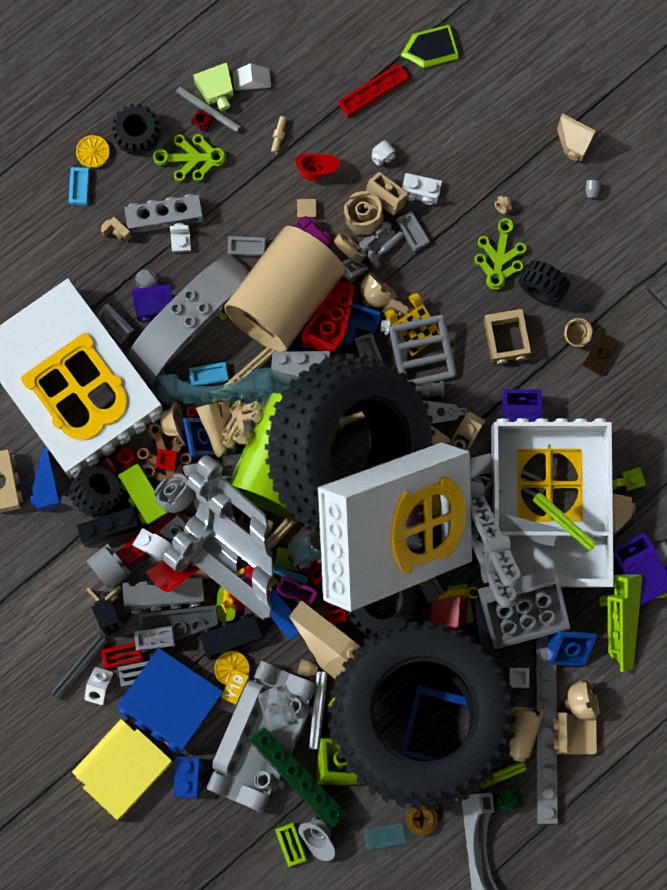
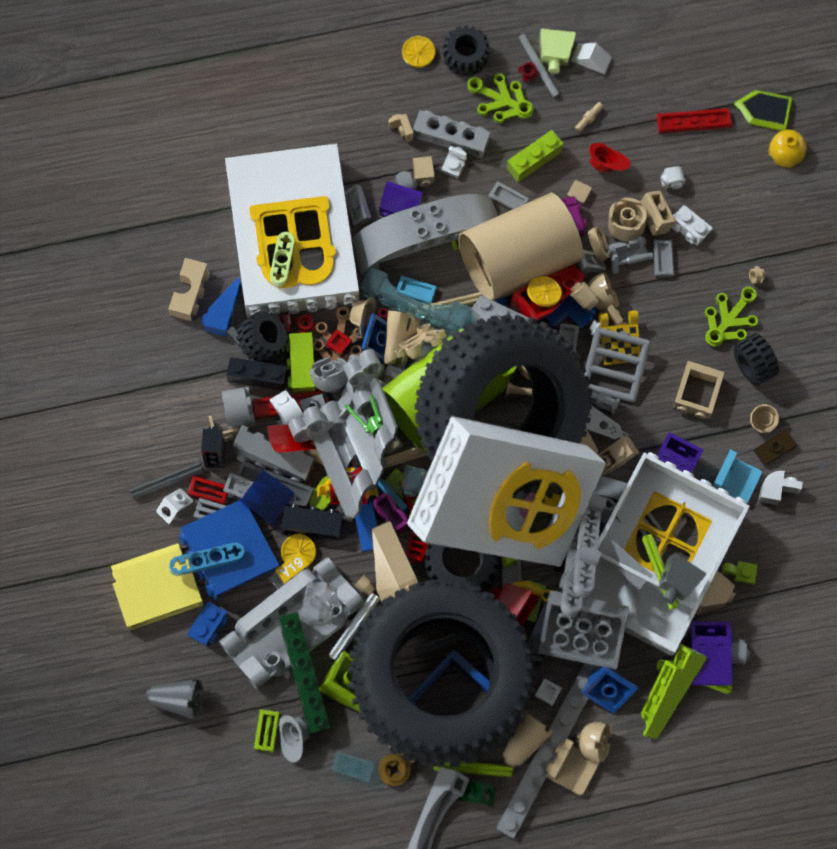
camera: 25 degrees right, 5 degrees down
(67, 400) = (284, 266): none -> yellowish green beam
(79, 186) = (390, 75): medium azure tile -> none
(156, 721) = (205, 555): none -> dark azure beam
(157, 261) = (423, 171): none -> tan brick
(179, 635) = (267, 496): none -> clear blue slope
(197, 858) = (178, 697): none -> dark grey cone
(242, 519) = (374, 422): none -> bright green plant
(249, 196) = (534, 156): none -> lime brick
(328, 319) = (544, 291): none -> yellow wheel
(364, 304) = (584, 295): none -> tan brick
(470, 73) = (787, 148): none -> yellow cylinder
(582, 399) = (737, 477): none -> medium azure bracket
(585, 520) = (679, 578): none -> dark grey torso
(616, 390) = (775, 484): none -> white brick

